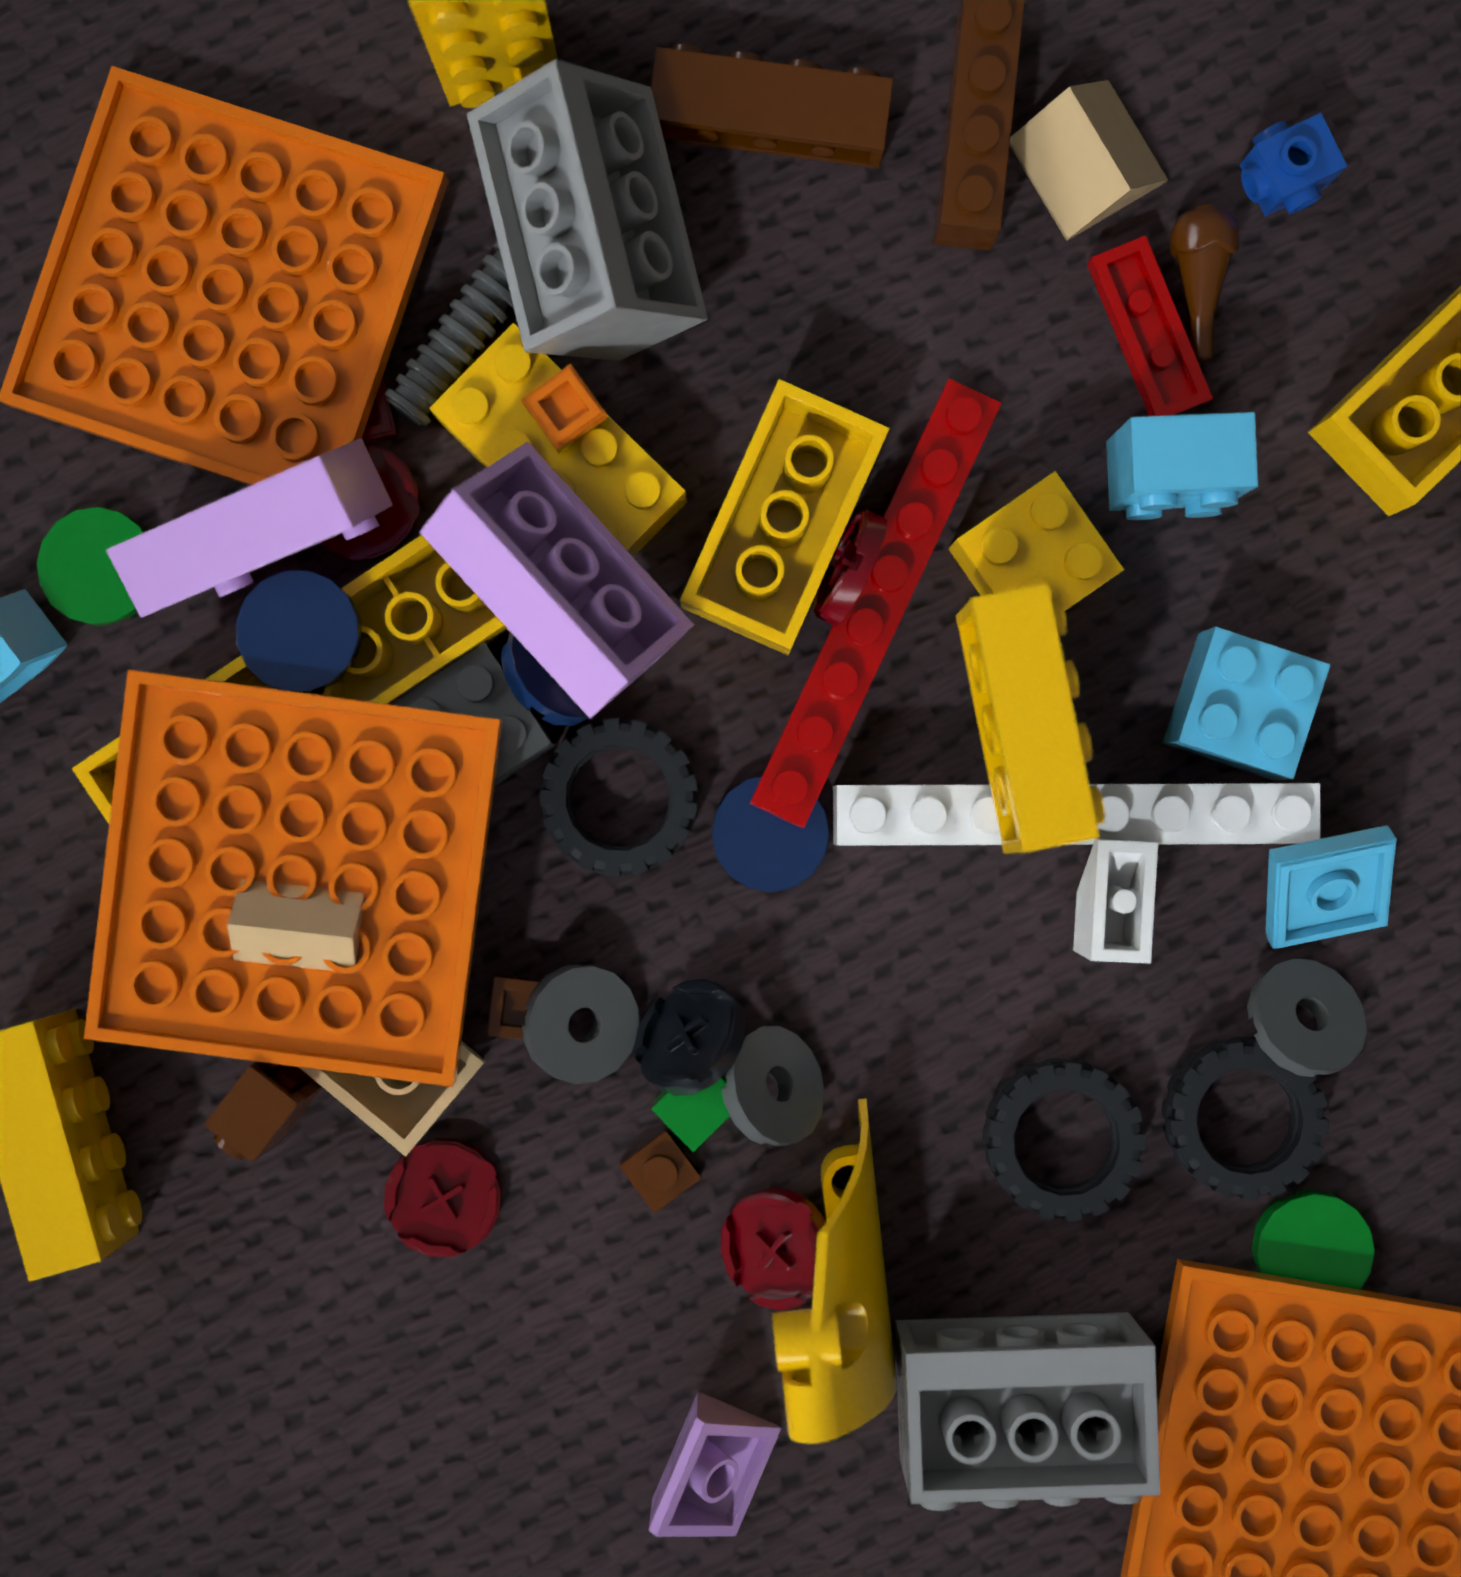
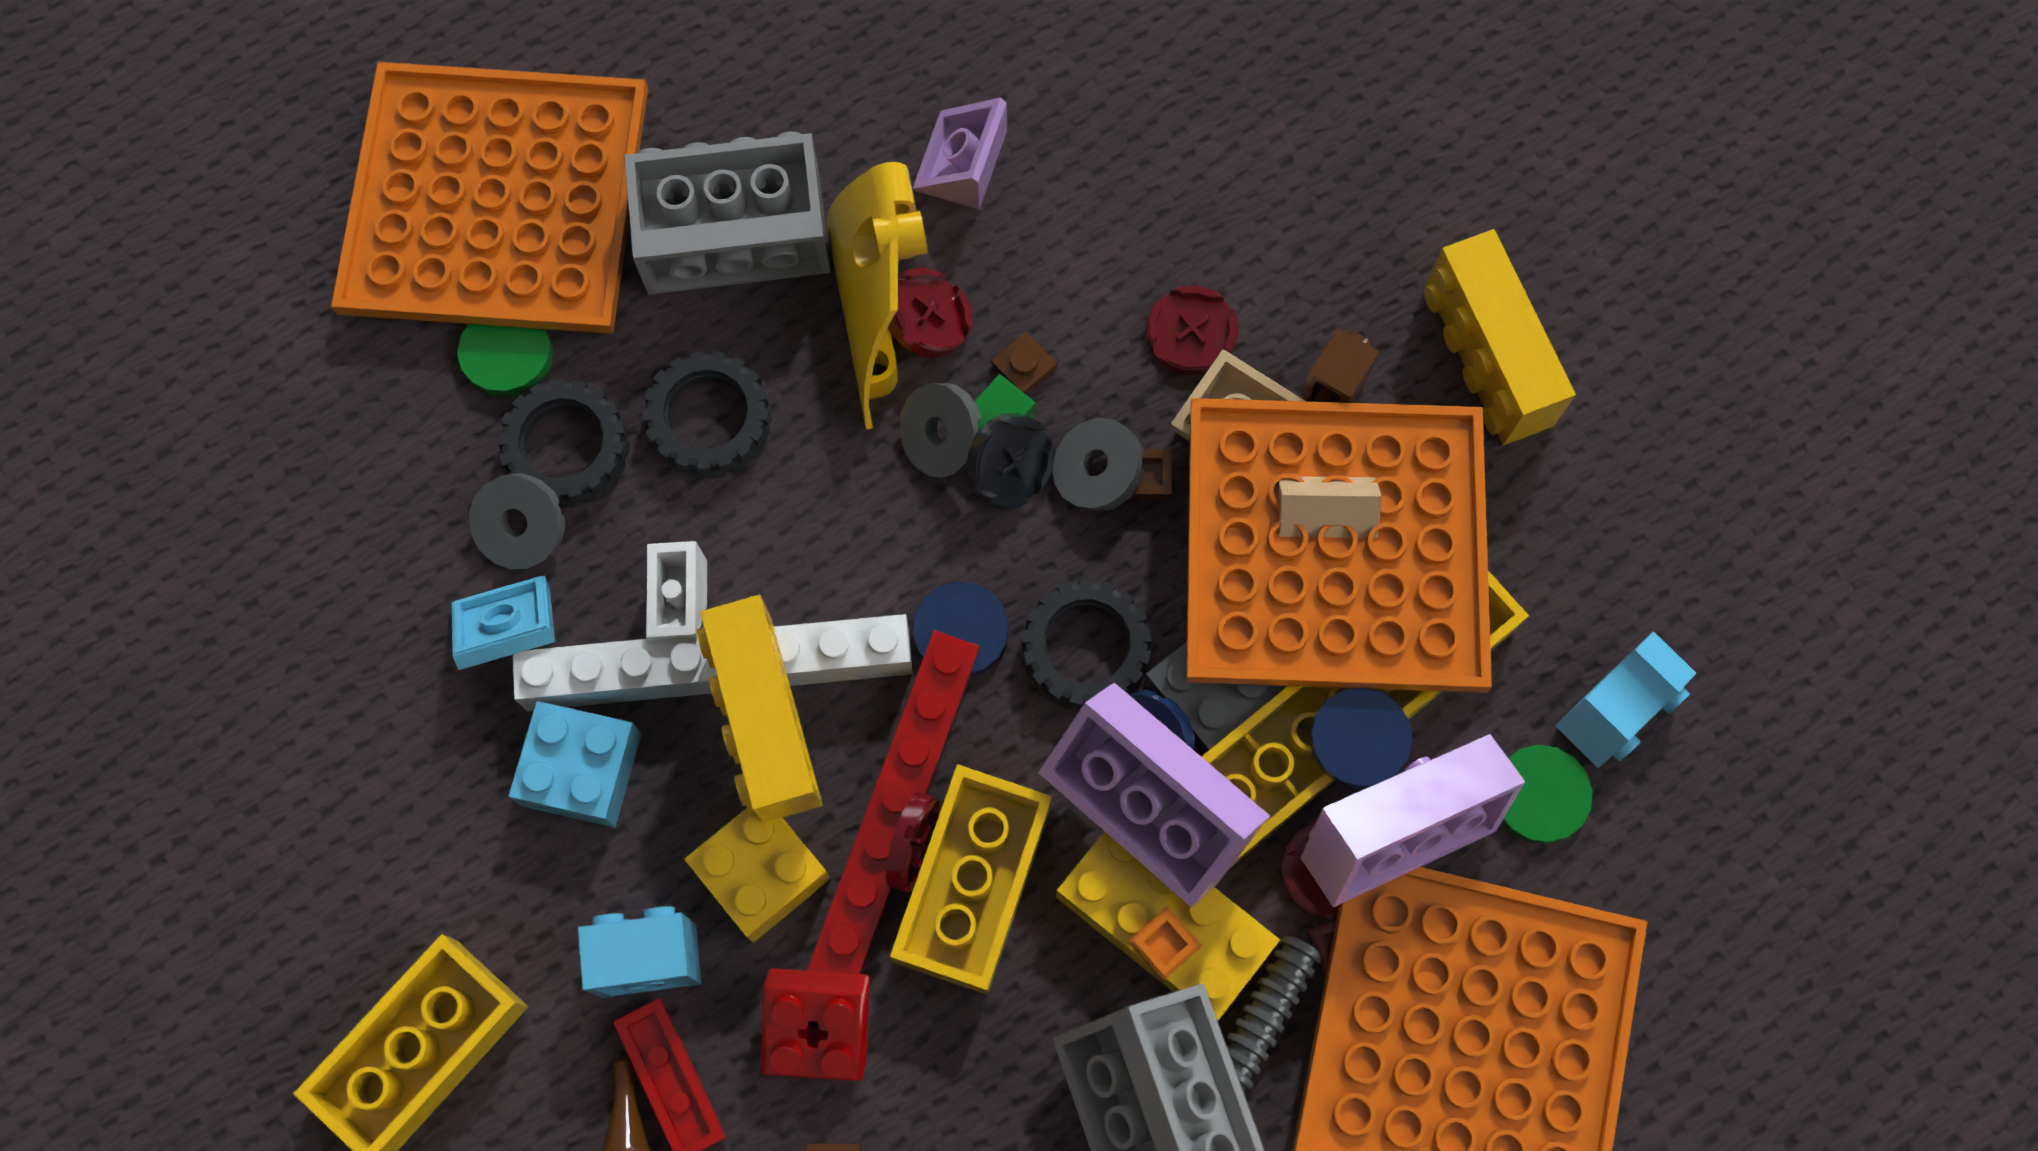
camera: 175 degrees right, 15 degrees down
(981, 369) = (831, 999): none -> red brick

